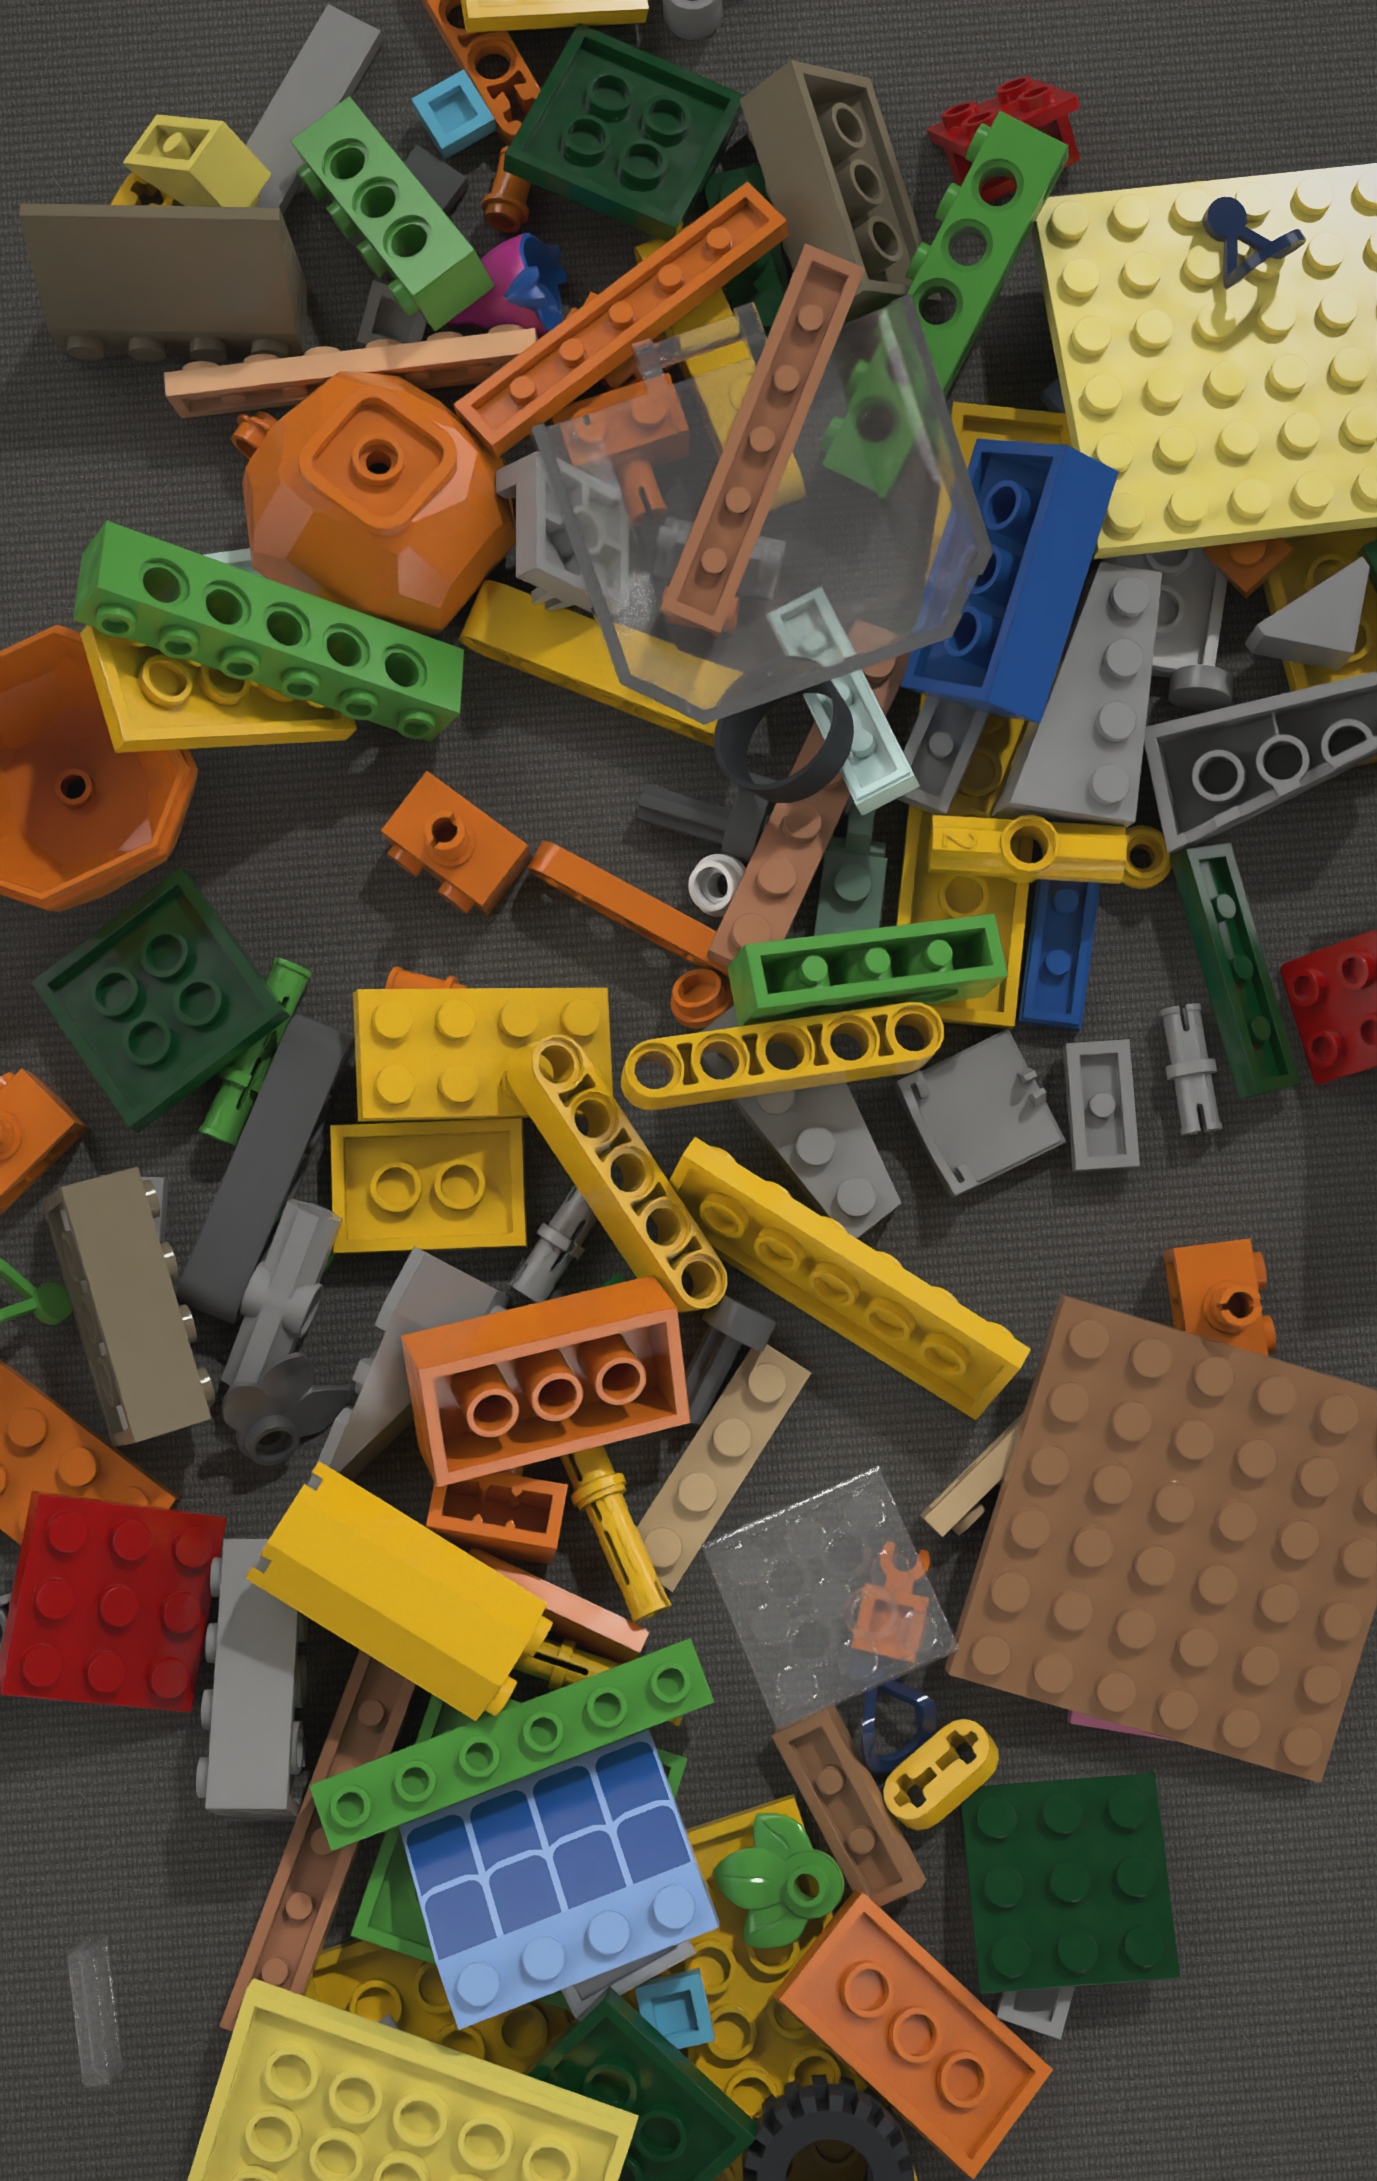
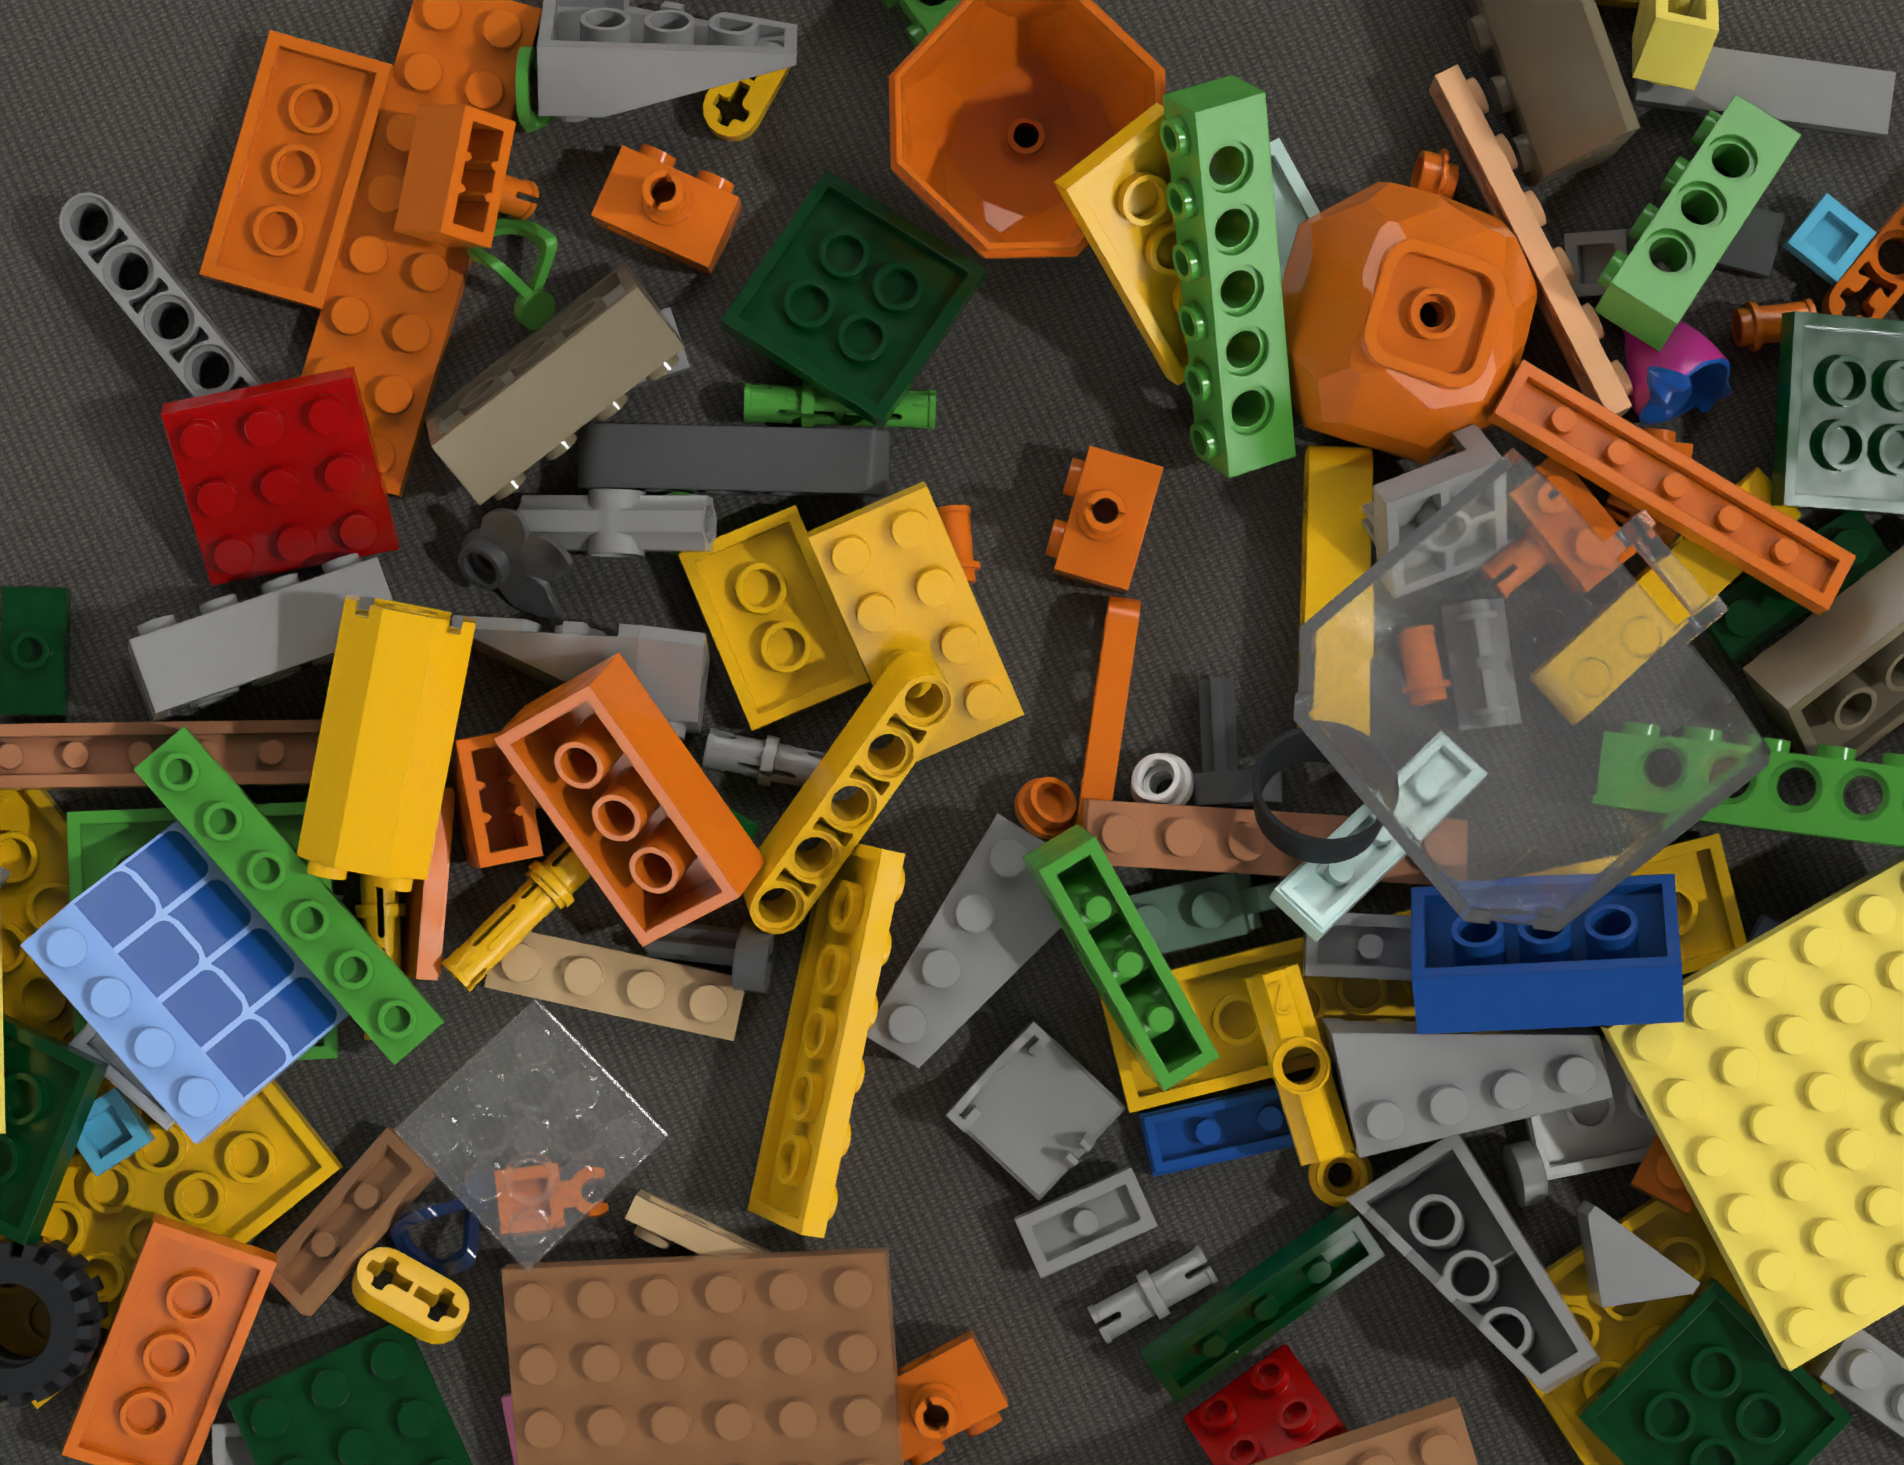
camera: 65 degrees right, 5 degrees up
(187, 1909) = (35, 651): none -> dark green plate
(762, 439) = (1593, 670): nougat plate -> none
(768, 1881) = (256, 1172): bright green plate -> none
(806, 1036) = (1036, 925): yellow beam -> none

